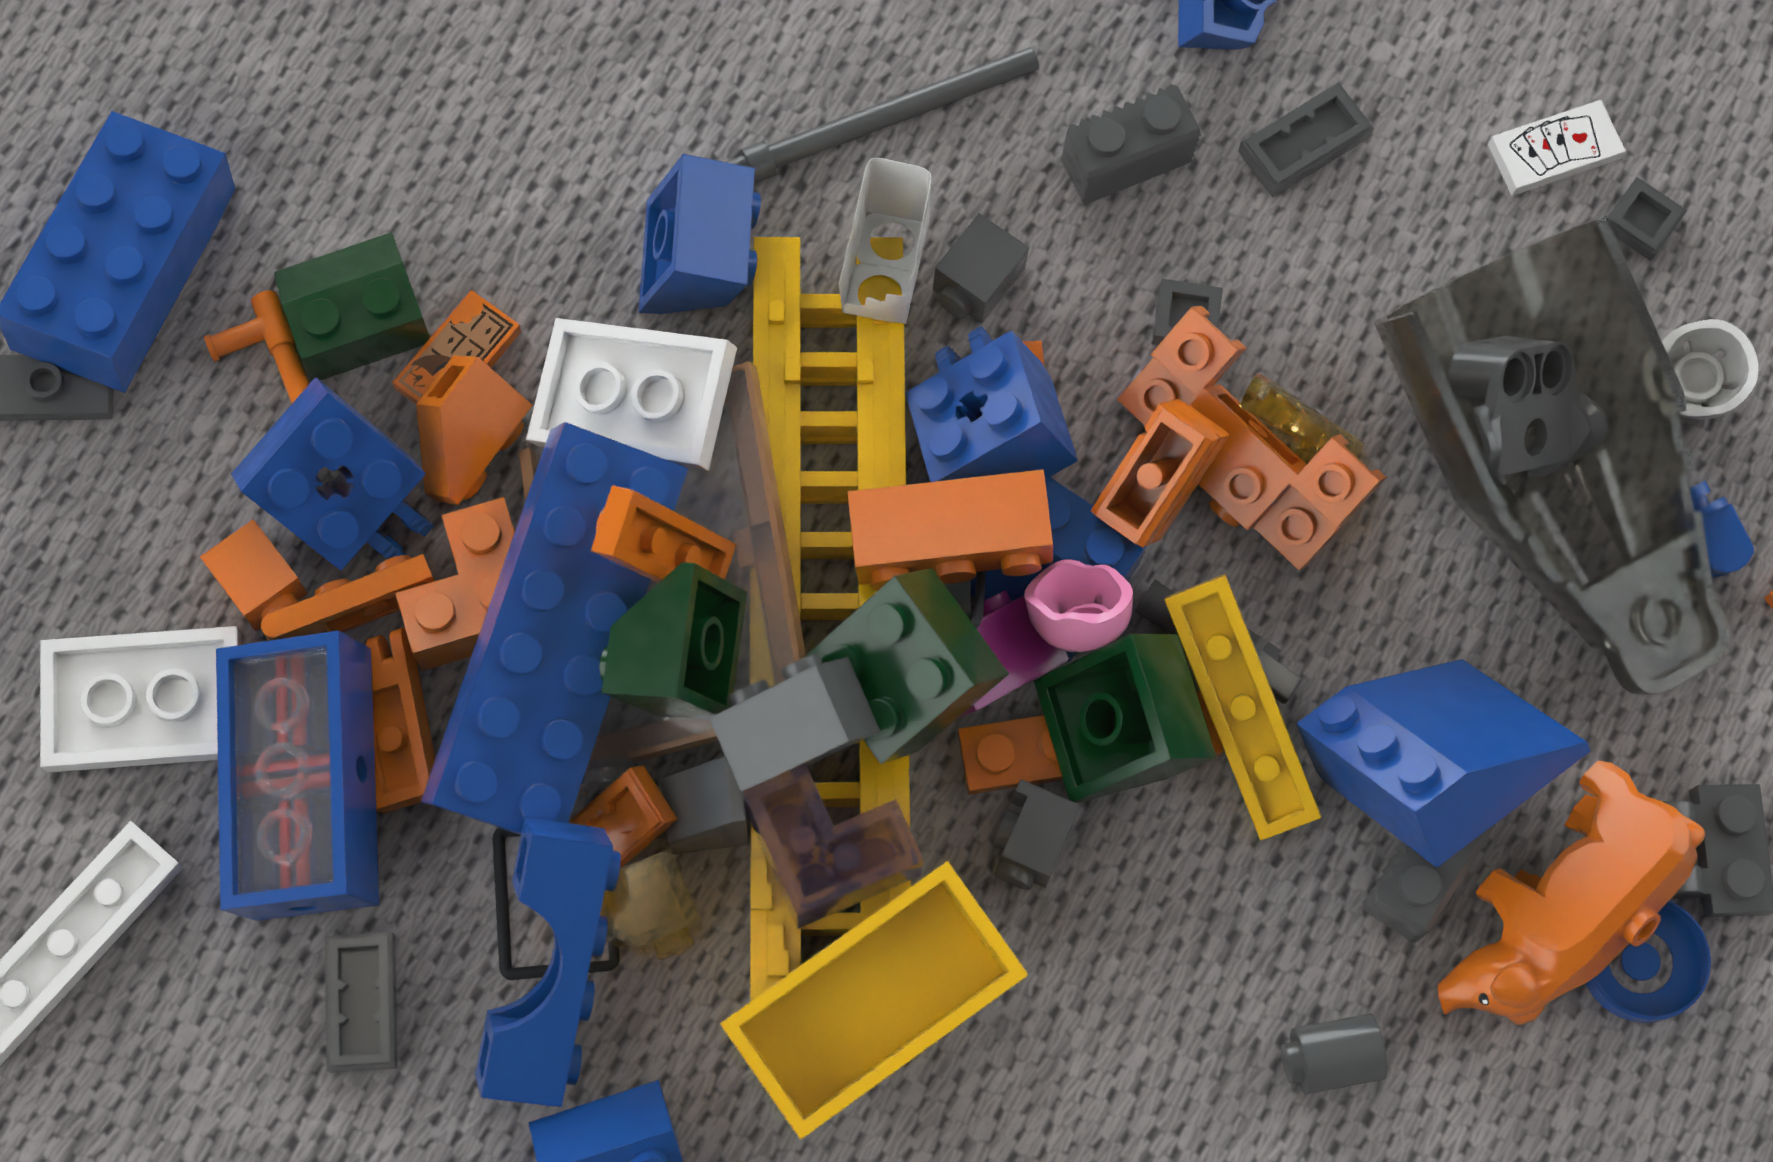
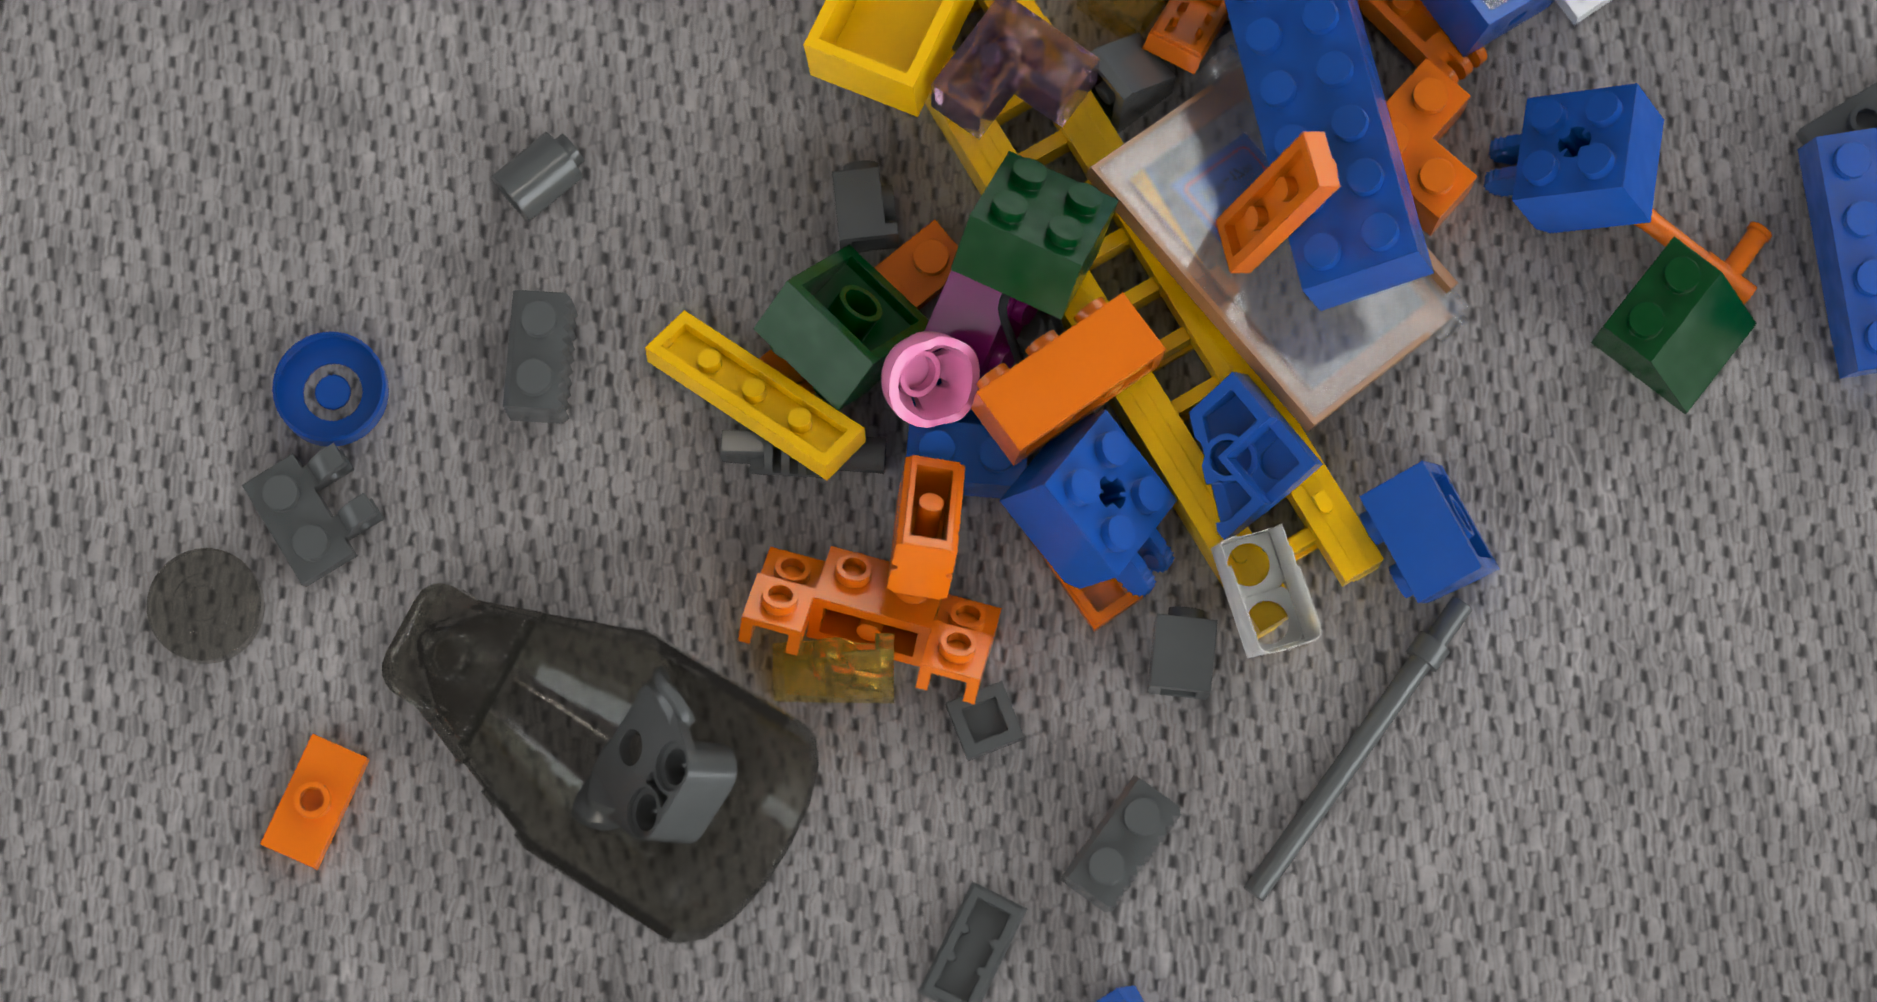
camera: 155 degrees right, 5 degrees up
(253, 573) = (1589, 58): orange brick -> none
(349, 603) = (1509, 83): orange hinge -> none
(463, 425) = (1511, 274): orange slope -> none
(470, 330) = (1561, 338): tile -> none
(635, 388) = (1392, 352): white plate -> none
(677, 646) = (1214, 142): dark green slope -> none
(793, 722) = (1093, 134): brick -> none
(820, 381) = (1248, 452): none -> blue slope
(1436, 753) = (577, 436): blue slope -> none
(1584, 906) = (401, 379): orange animal -> none
(1704, 375) = (518, 924): white helmet -> none
(1725, 534) = (441, 783): blue arm -> none

